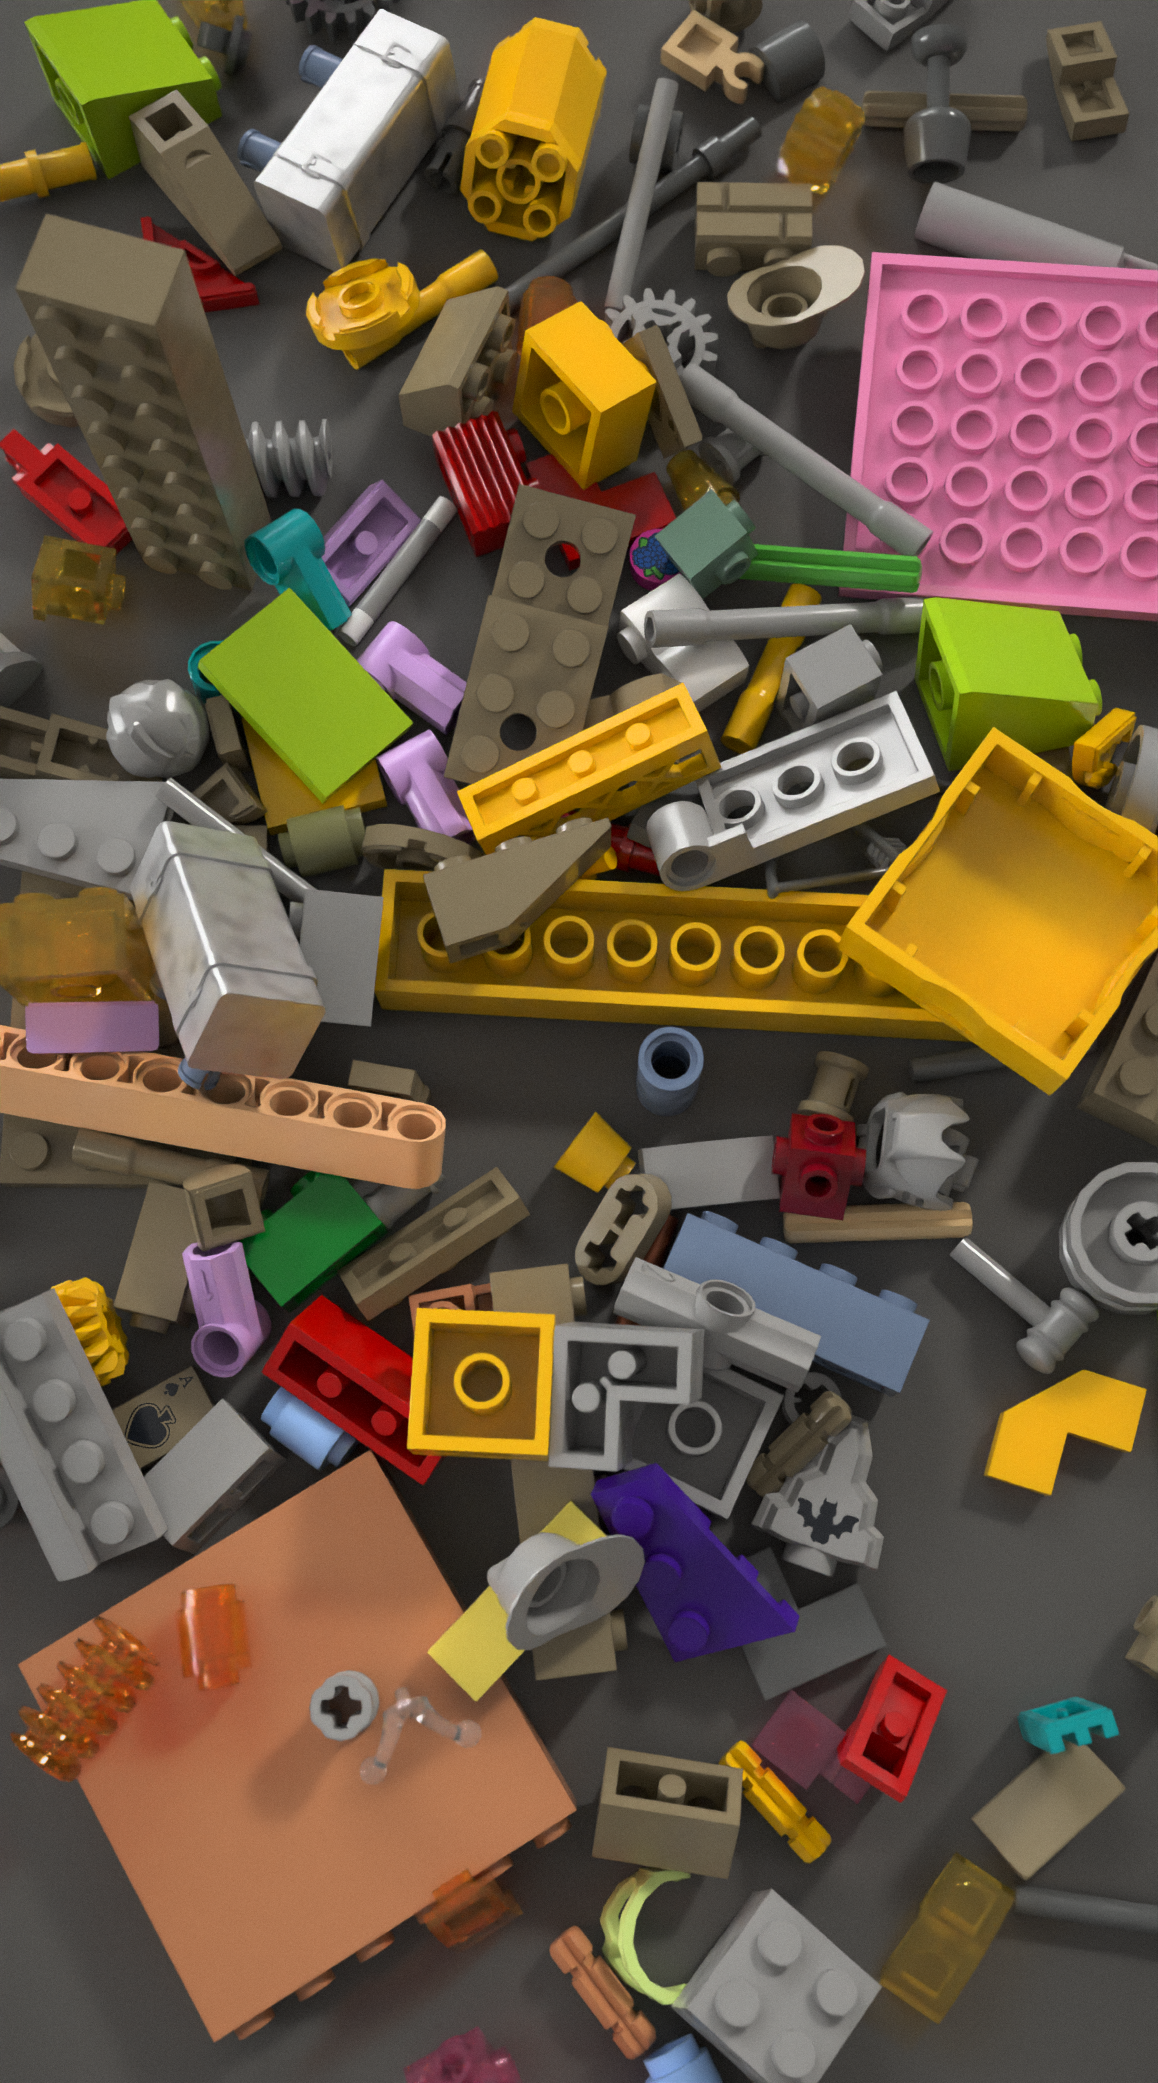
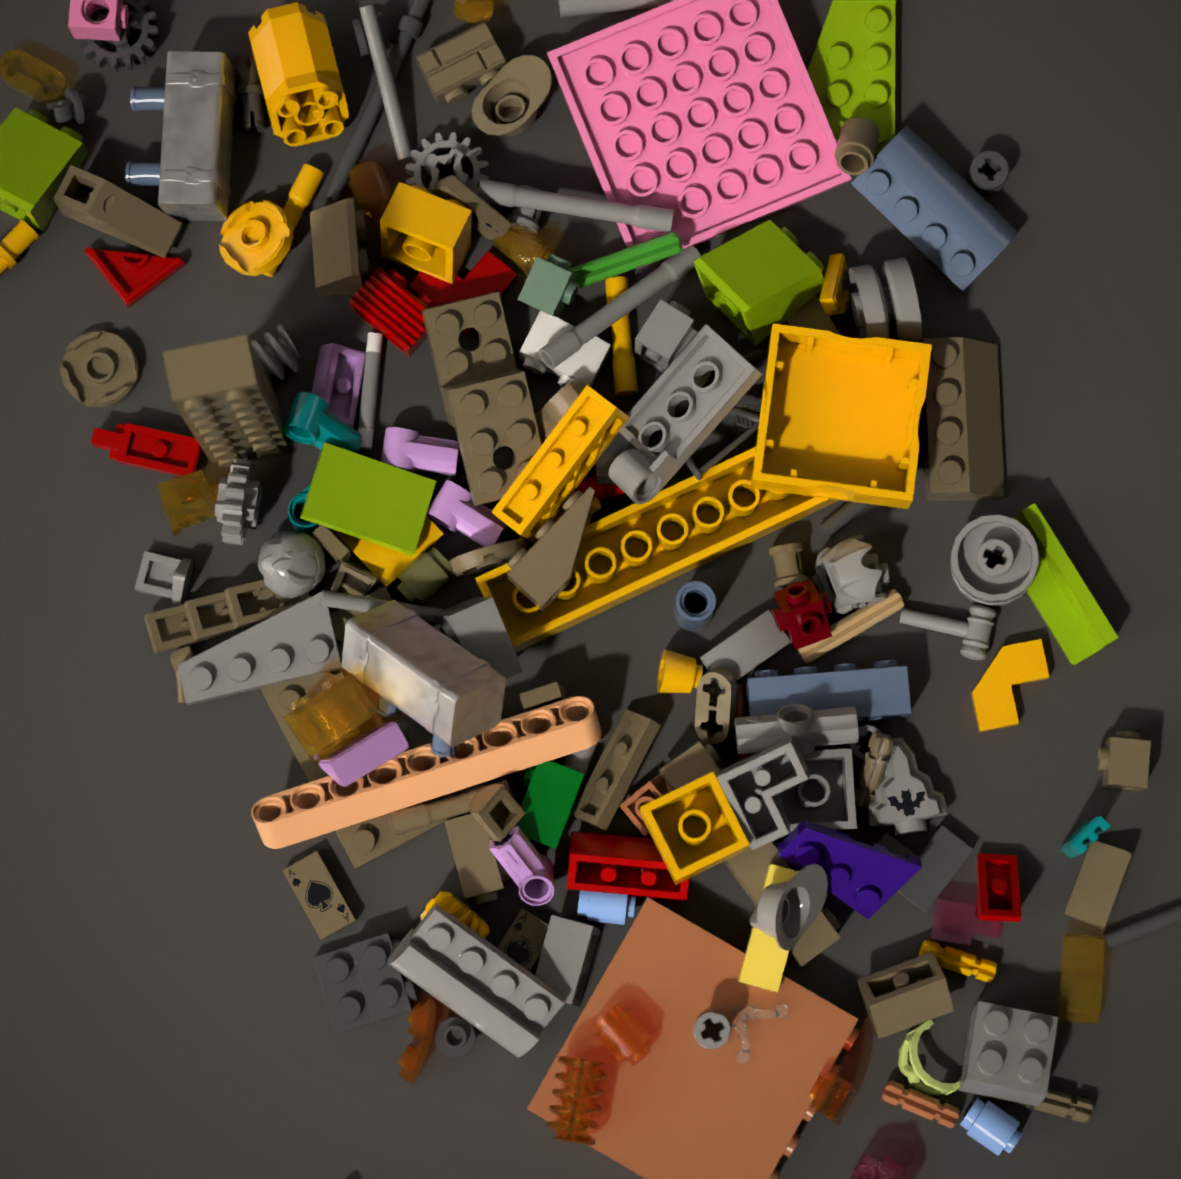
camera: 30 degrees left, 5 degrees up
(132, 608) = (238, 501): none -> light grey gear
(649, 562) = (515, 310): tile -> none

